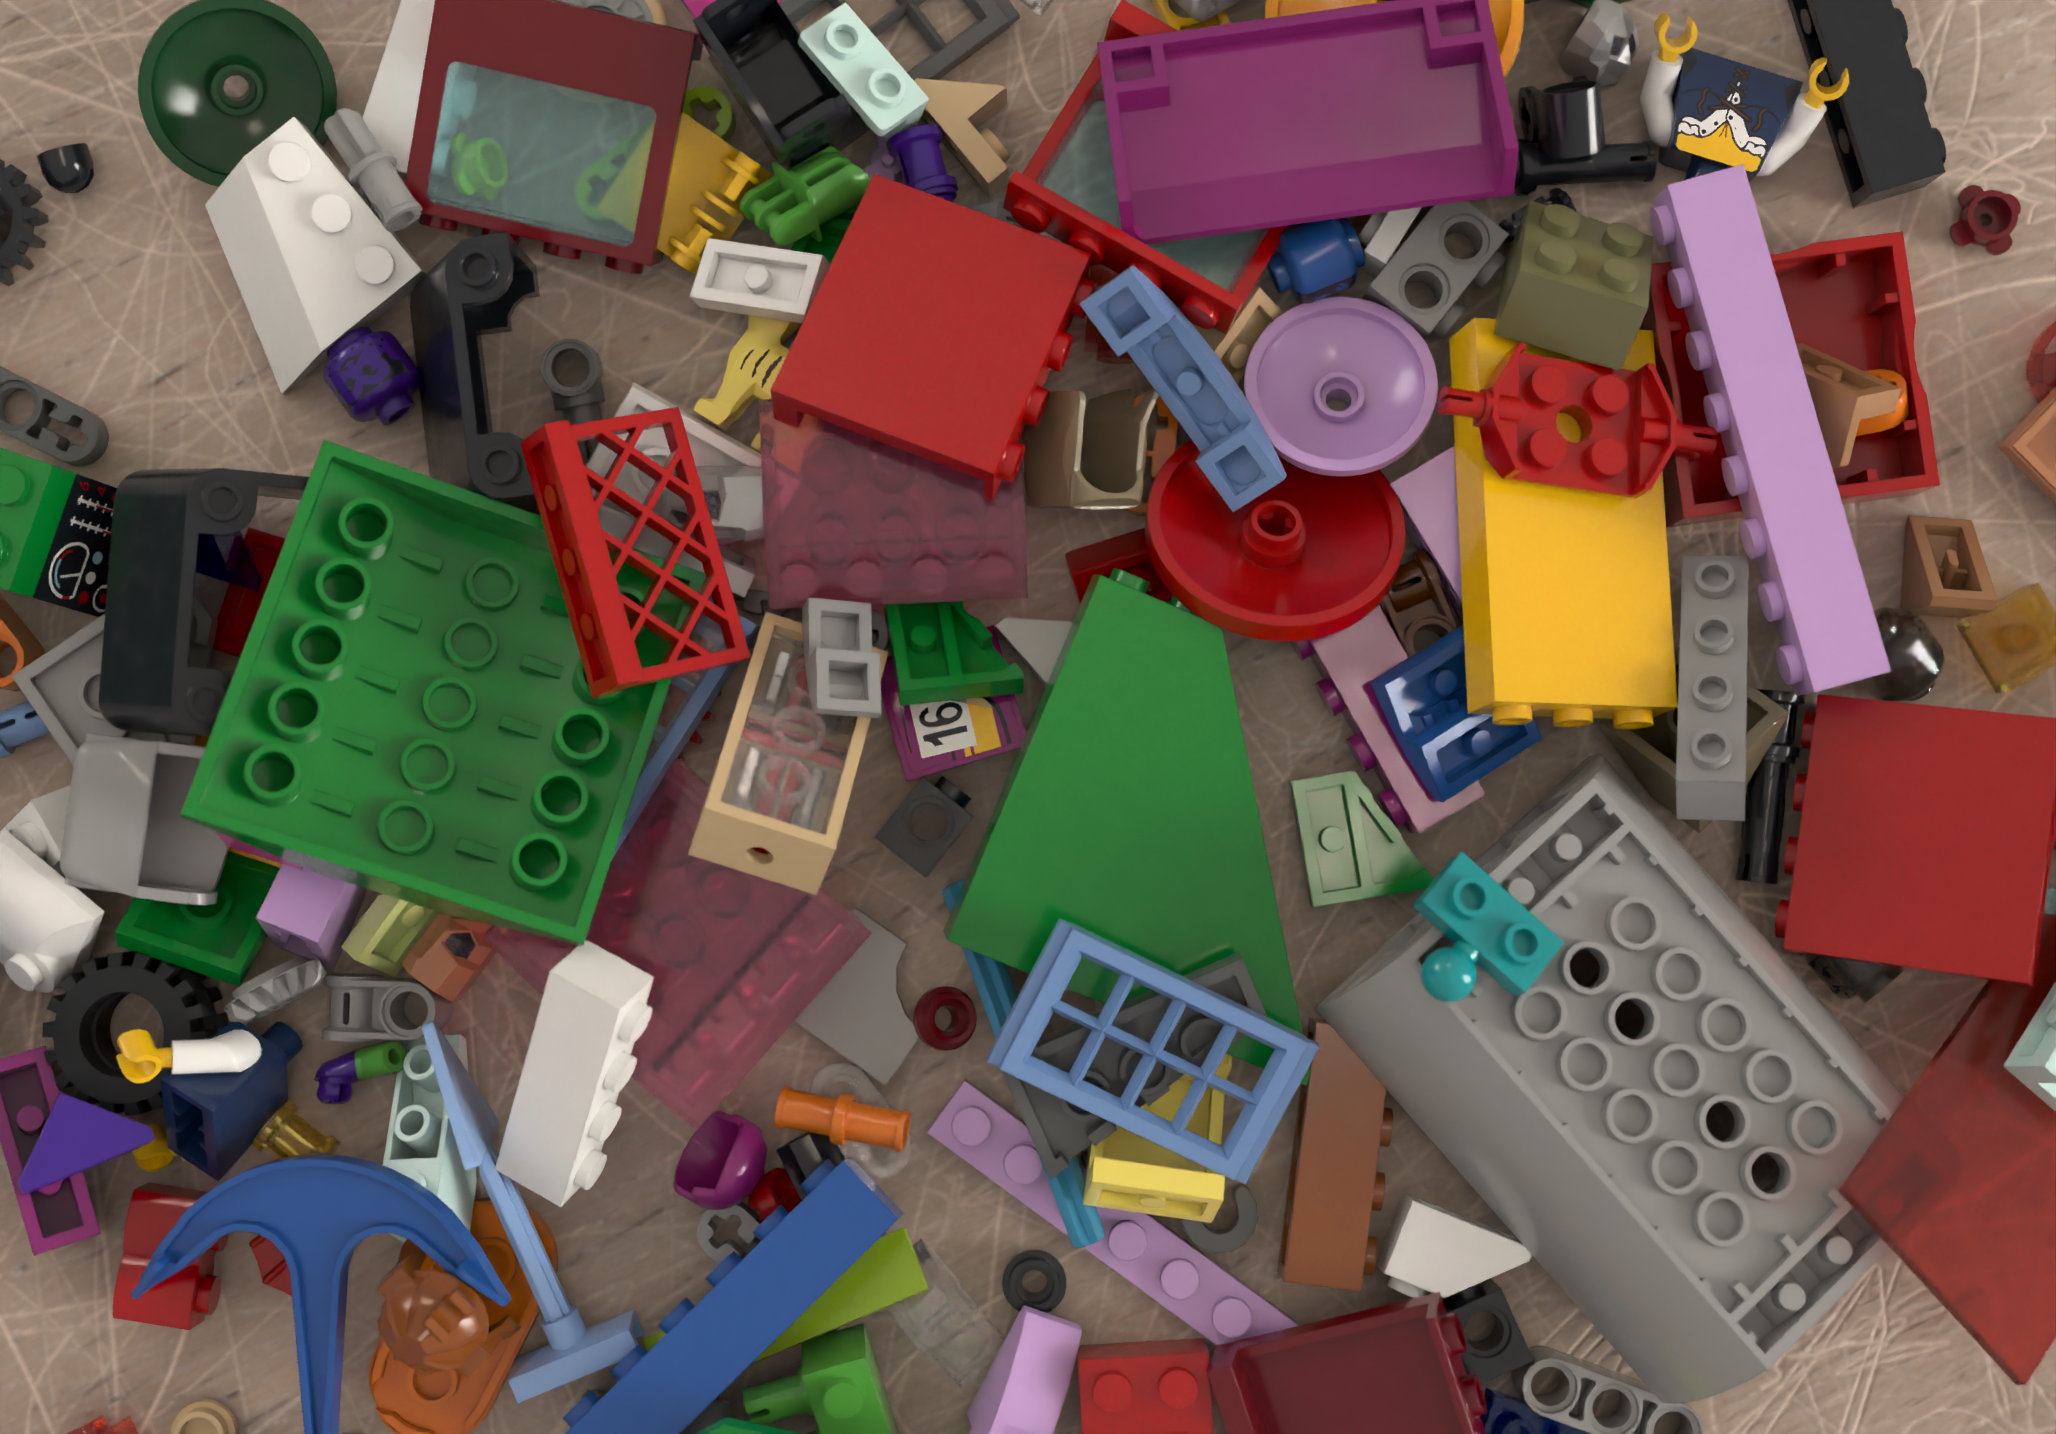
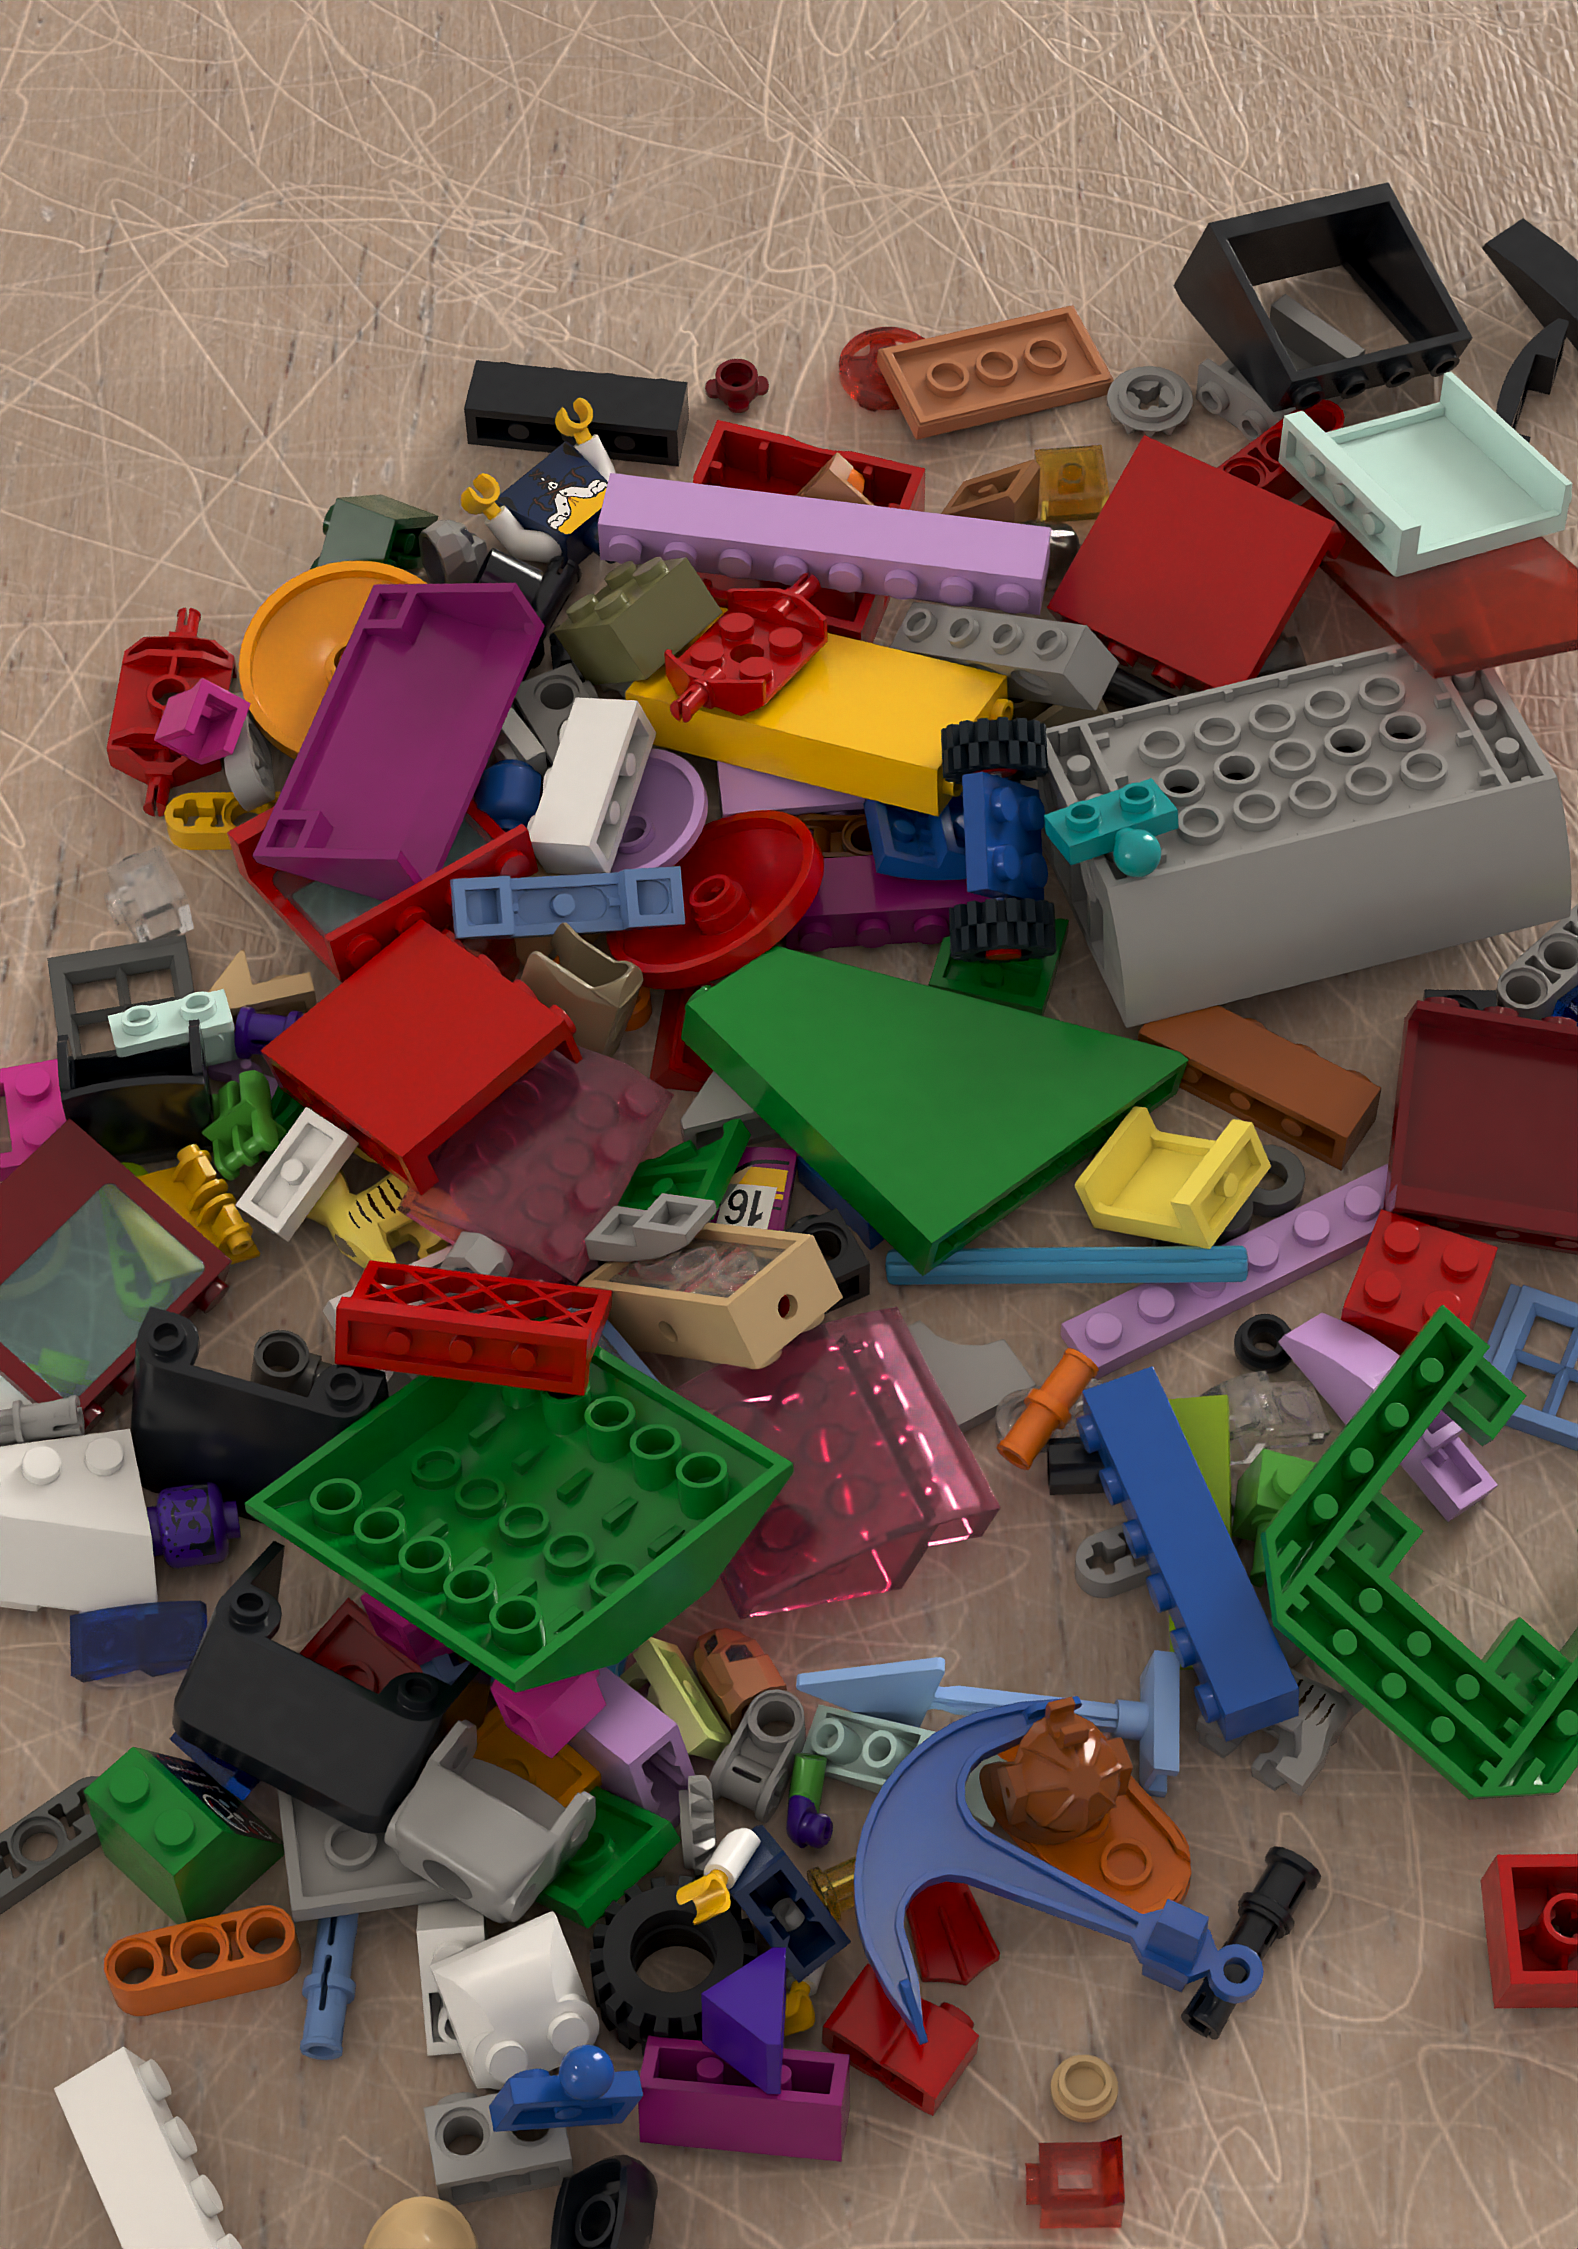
camera: 65 degrees left, 30 degrees down
(243, 388) = (136, 1637): none -> clear blue slope
(575, 1073) = (902, 1558): white brick -> none
(721, 1162) = (1039, 1531): magenta hair -> none
(771, 1185) = (1087, 1511): red hinge -> none
(962, 1018) = (1000, 1315): dark red plate -> none
(1042, 997) = (1017, 1178): medium blue piece -> none
(1064, 1129) = (1097, 1163): dark grey wing -> none
(1344, 339) = (591, 786): none -> white brick
(1443, 1250) = (1369, 1026): white slope -> none
(1449, 802) = (1000, 840): none -> plate

